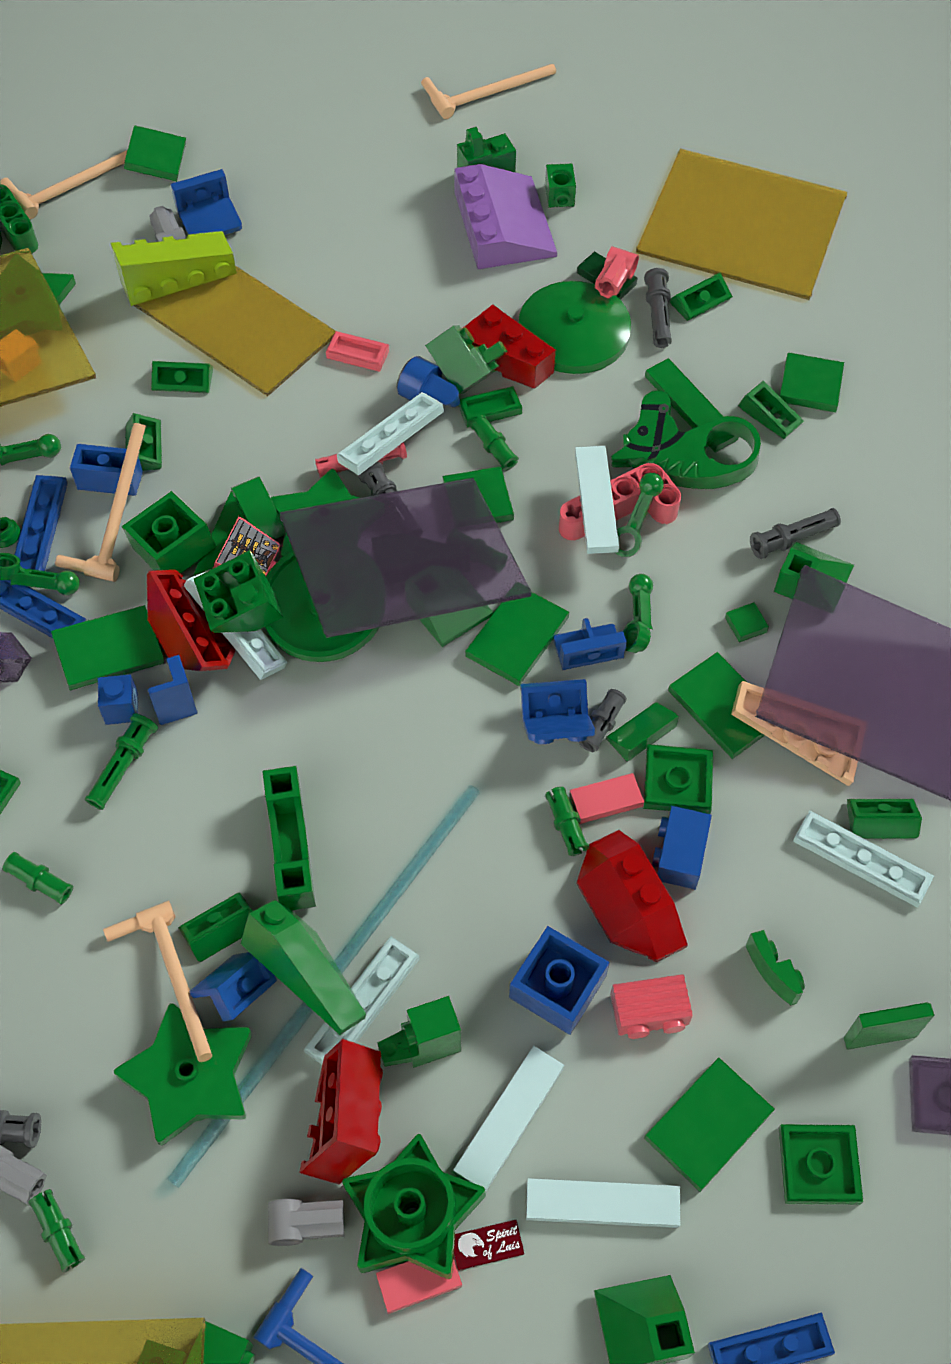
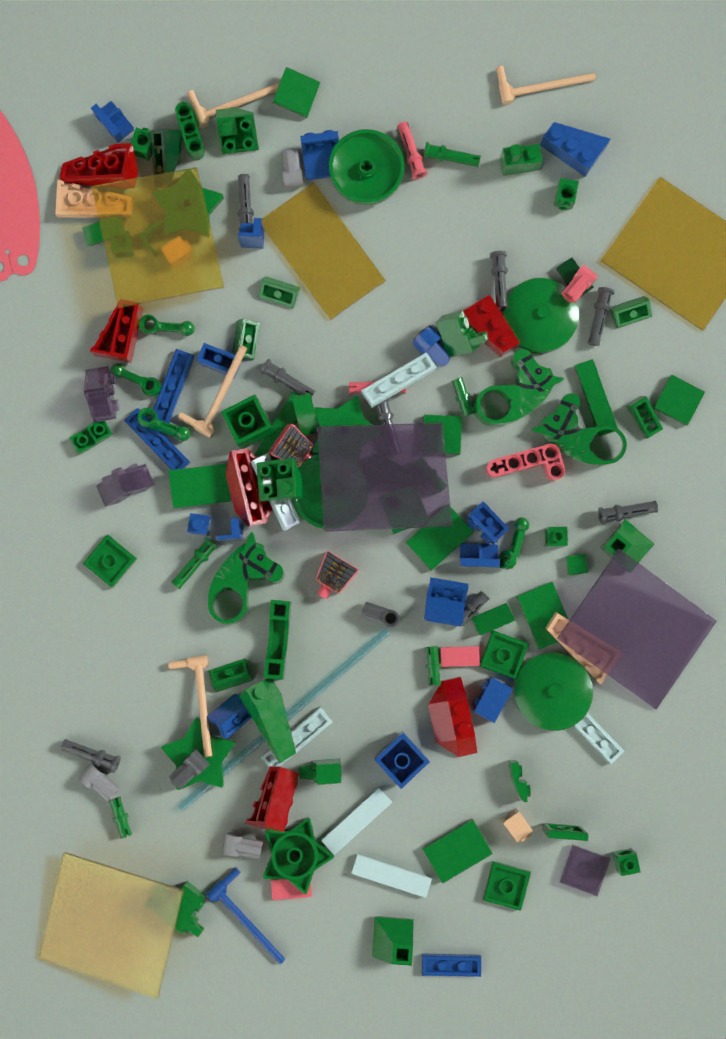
camera: 15 degrees right, 25 degrees up
(37, 878) = (138, 623): green pin -> none
(80, 205) = (236, 130): none -> green slope
(110, 292) = (245, 211): none -> dark grey pin
(125, 310) = (252, 234): none -> blue panel
(172, 264) = (290, 204): lime wedge -> none
(179, 1078) = (192, 766): none -> dark grey piece
(197, 755) = (240, 567): none -> green animal
(207, 474) = (281, 376): none -> dark grey pin
(273, 206) = (366, 167): none -> green dish
(339, 190) = (414, 158): none -> coral pin
(357, 351) = (395, 299): coral tile -> none
(362, 721) = (334, 574): none -> torso
(377, 177) = (441, 153): none -> green pin
(452, 764) = (378, 614): none -> dark grey piece
(487, 1244) = (329, 878): dark red sticker -> none
(492, 404) = (468, 366): green tile -> none
(502, 216) = (520, 210): medium lavender slope -> none
(503, 288) = (499, 271): none -> dark grey pin
(554, 134) = (574, 146): none -> blue wedge
(583, 420) = (531, 389): none -> green animal
(584, 593) = (487, 523): none -> blue bracket
(596, 500) = (511, 464): light aqua tile -> none
(650, 487) = (546, 465): green piece -> none
(651, 1006) = (446, 783): coral brick -> none
(700, 586) = (556, 537): none -> green brick
(780, 811) = (553, 691): none -> green dish
(800, 1046) = (517, 826): none -> light nougat brick
(884, 818) = (610, 708): green slope -> none

